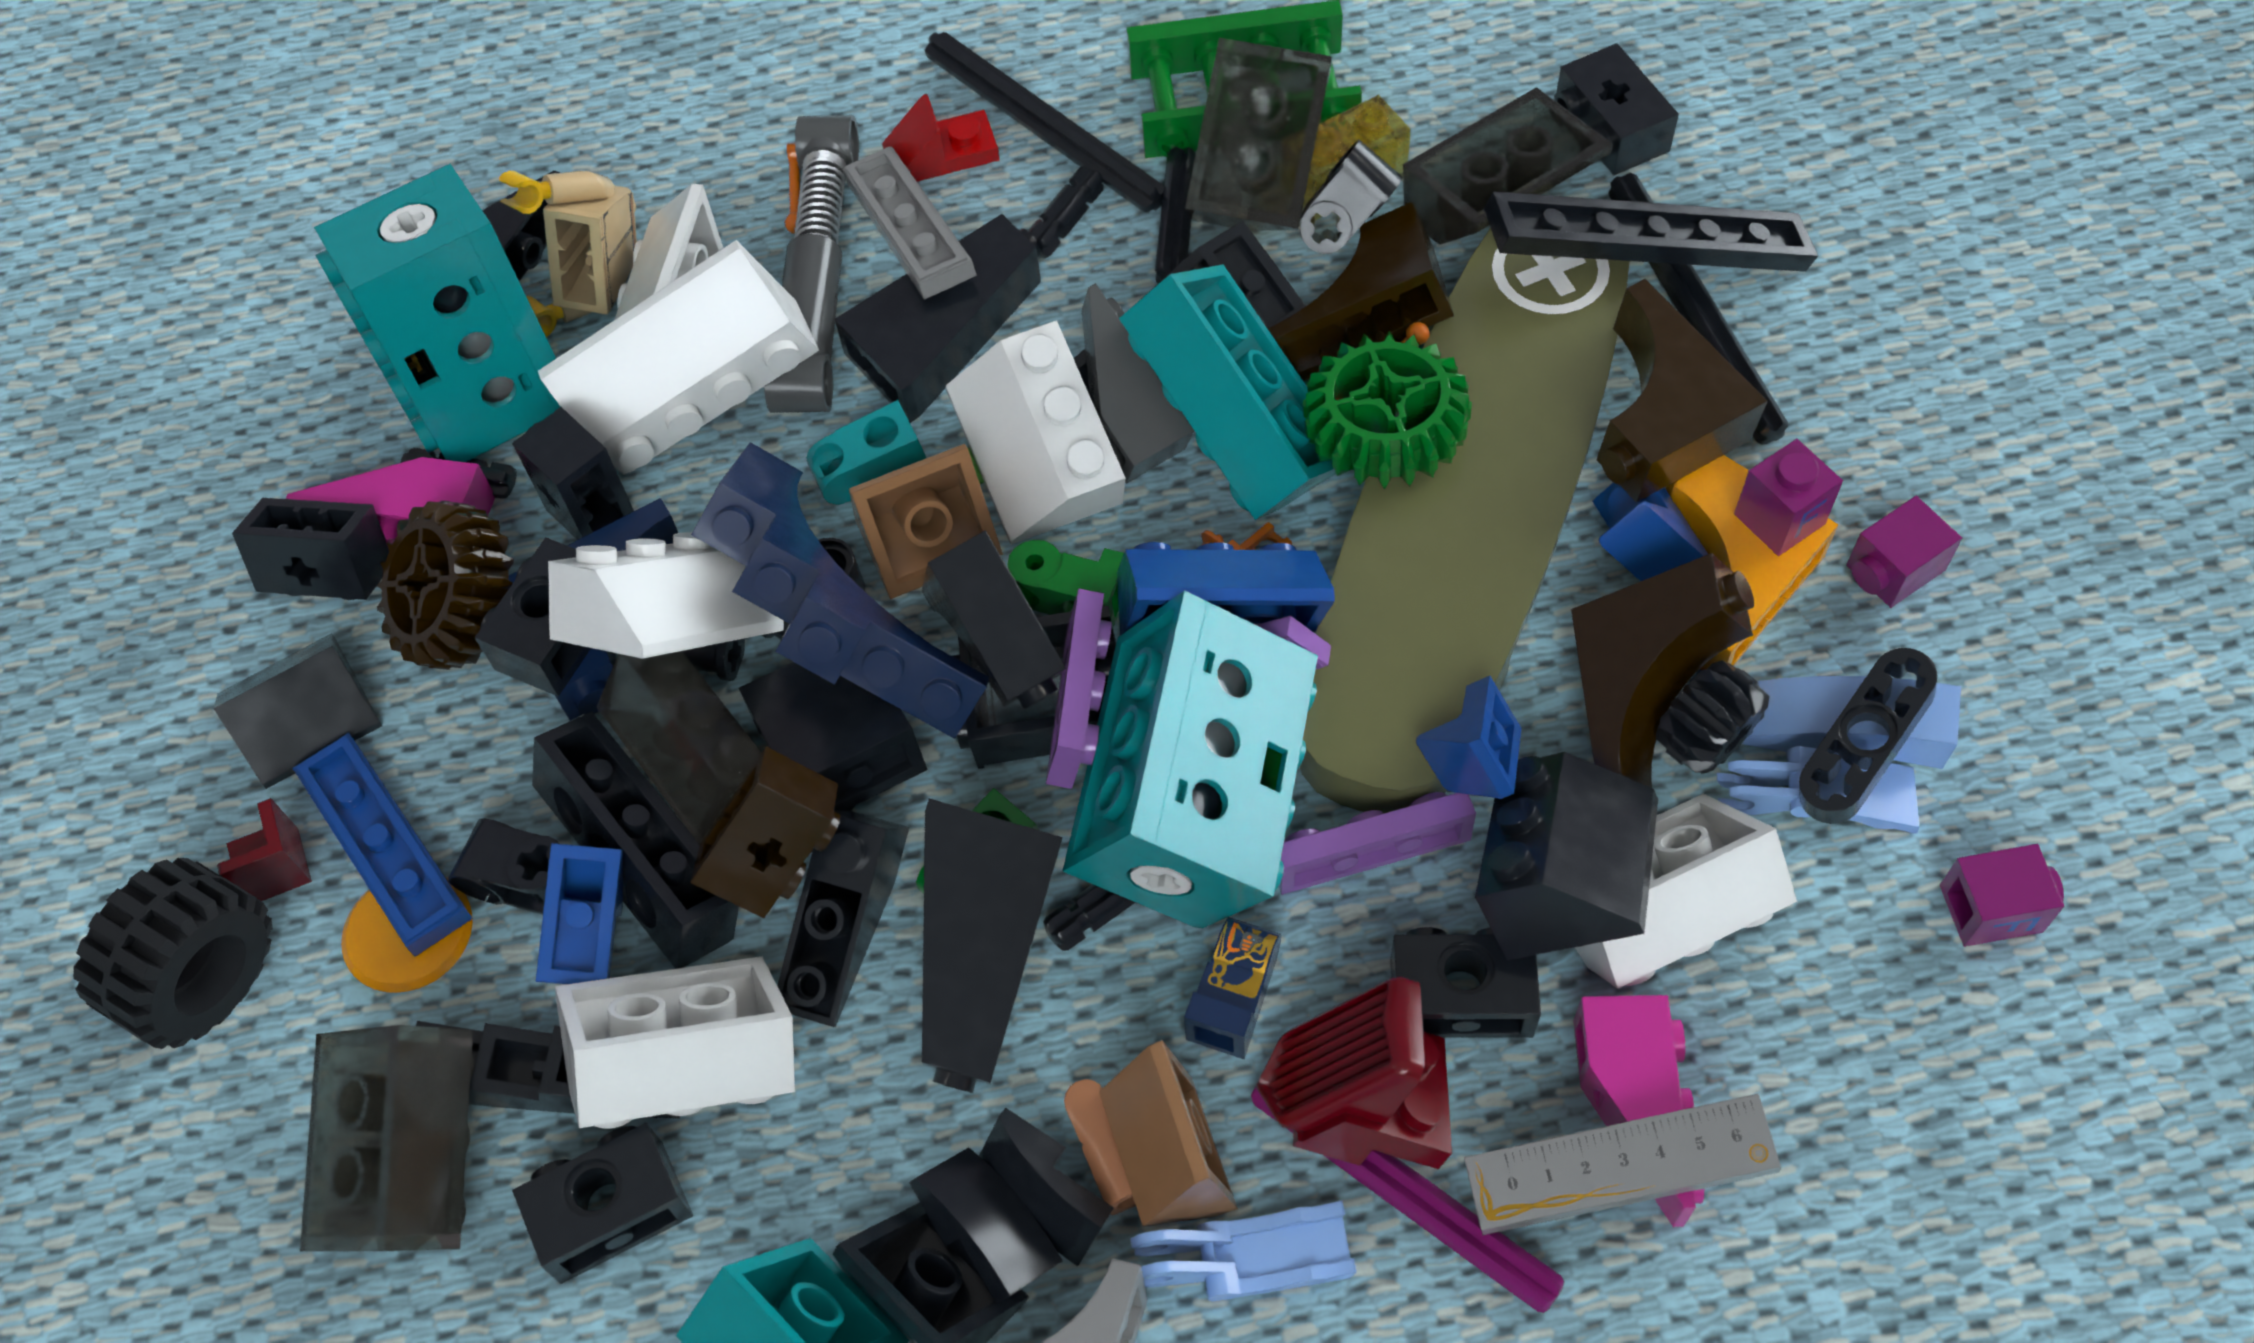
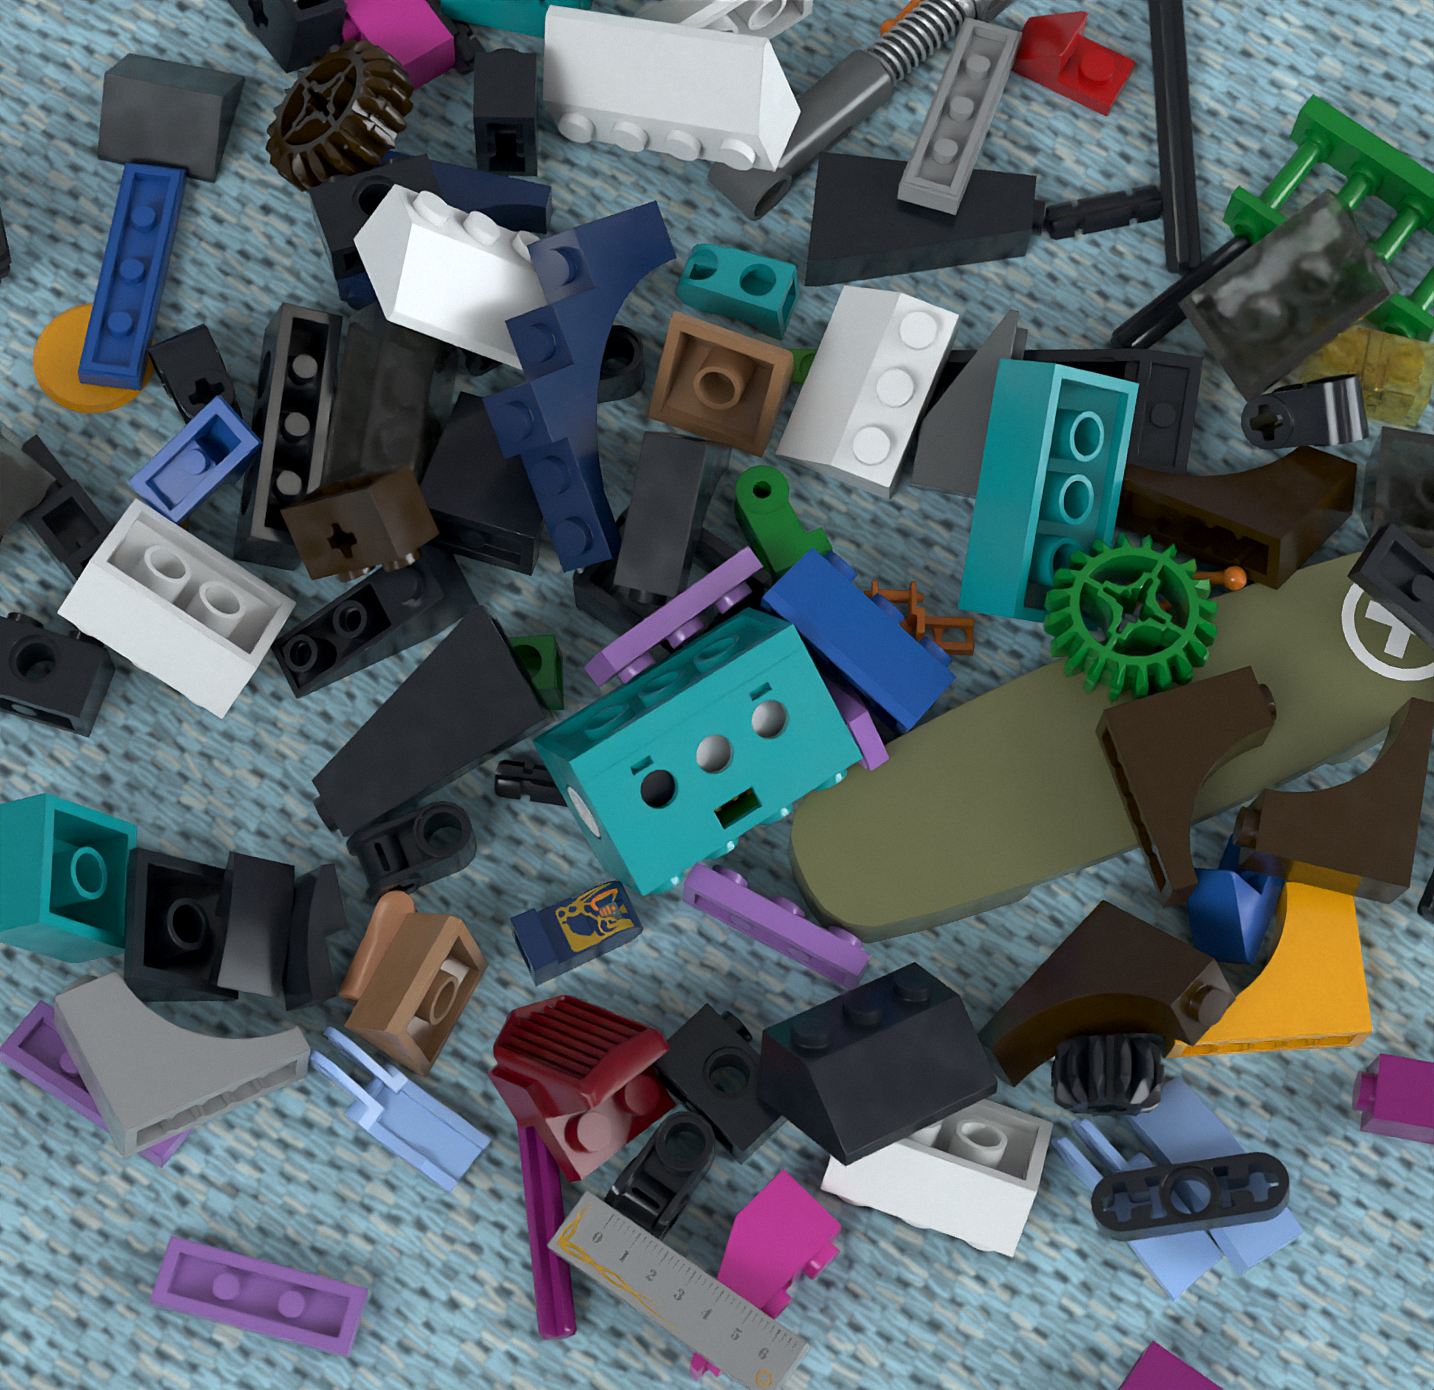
camera: 35 degrees right, 10 degrees up
(268, 859) = (49, 217): dark red panel -> none
(1045, 1056) = (408, 849): none -> black piece
(1479, 747) = (910, 932): blue slope -> none
(1498, 1105) = (661, 1178): none -> black piece
(1519, 481) = (1166, 752): none -> dark brown arch
(1787, 496) = (1342, 973): magenta brick -> none

